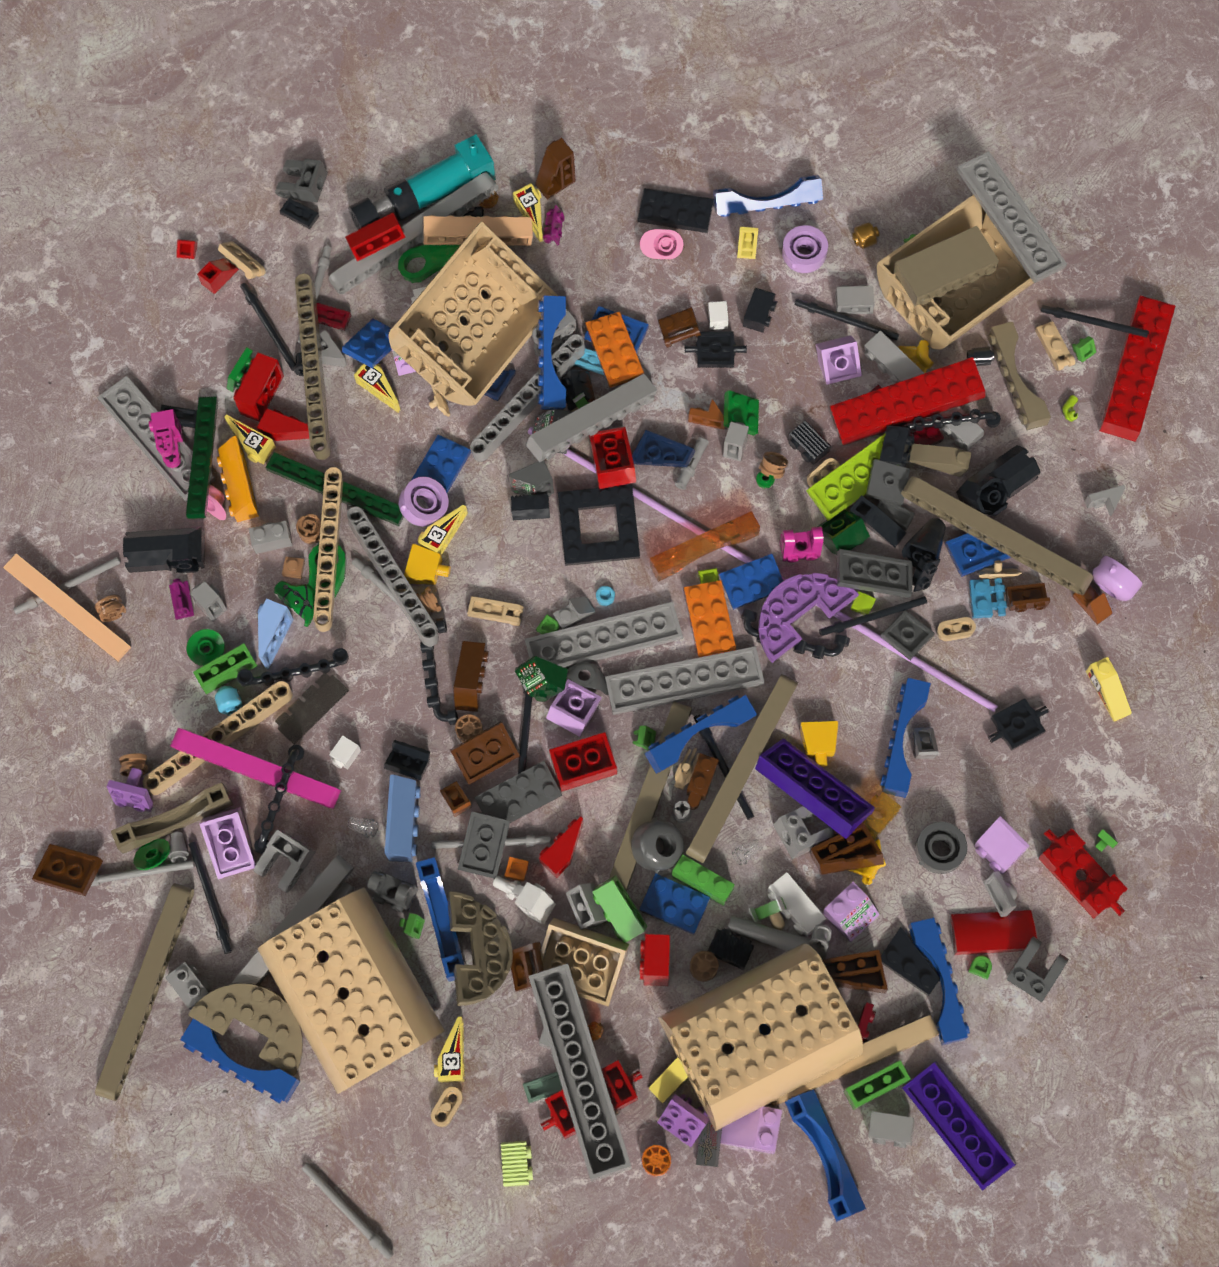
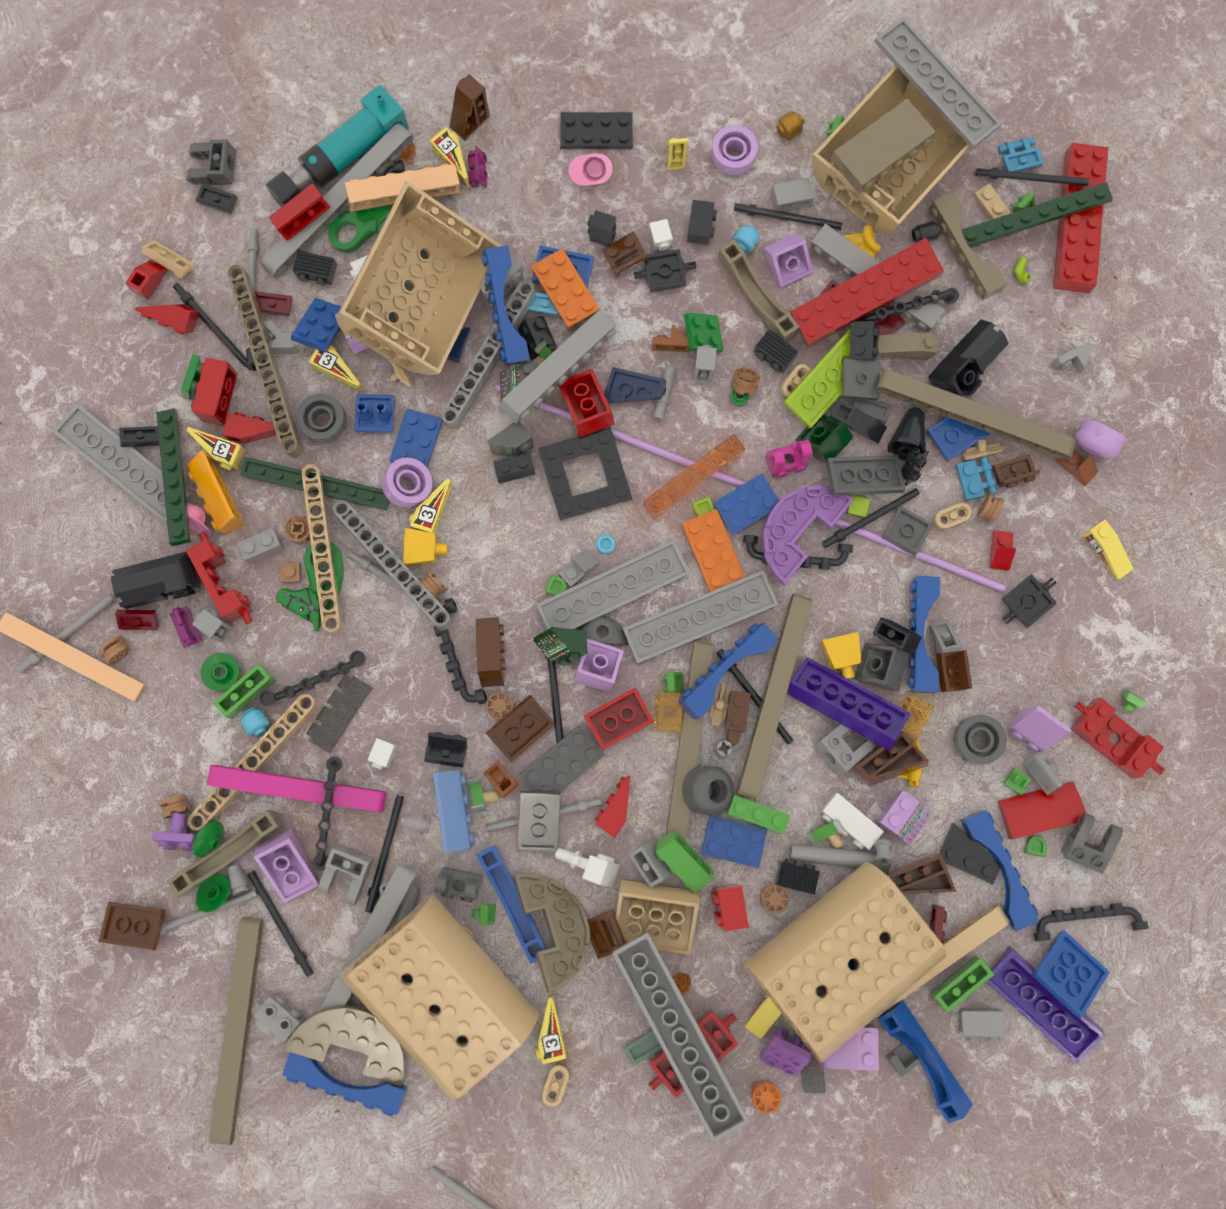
camera: 15 degrees left, 10 degrees up
(137, 584) = (137, 619): none -> dark red plate
(159, 800) = (208, 839): none -> green dish
(167, 436) = (132, 461): dark pink brick -> none
(186, 249) = (109, 256): red slope -> none
(230, 582) = (207, 557): none -> red brick
(236, 311) = (176, 316): none -> red slope
(273, 626) = (282, 641): light blue slope -> none
(307, 883) = (374, 891): none -> black bar
(350, 417) = (314, 406): none -> dark grey piece
(378, 291) = (314, 268): none -> black brick
(406, 434) = (374, 413): none -> blue plate
(431, 814) = (479, 796): none -> piece
(495, 610) = (500, 580): tan plate -> none
(515, 1163) = (632, 1127): yellowish green brick -> none
(516, 869) = (575, 837): orange plate -> none
(629, 776) = (671, 724): none -> clear yellow brick
(661, 299) = (602, 228): none -> black brick
(791, 365) = (739, 268): none -> dark tan arch
(800, 333) = (747, 238): none -> medium azure head
(802, 1150) = (902, 1059): none -> dark grey panel
(804, 190) = (721, 88): arch -> none
(857, 760) = (882, 666): none -> dark grey slope
(876, 730) = (897, 635): none -> black brick
(928, 778) = (954, 671): none -> reddish brown bracket
(974, 898) = (1017, 781): none -> bright green tile
(991, 1096) = (1071, 974): none -> blue plate
(995, 627) = (990, 508): none -> medium nougat wheel
(1000, 671) = (1001, 550): none -> red slope
(1031, 1043) = (1095, 912): none -> black bar
(1089, 305) = (1022, 160): none -> dark azure plate
(1091, 357) = (1037, 215): none -> dark green plate

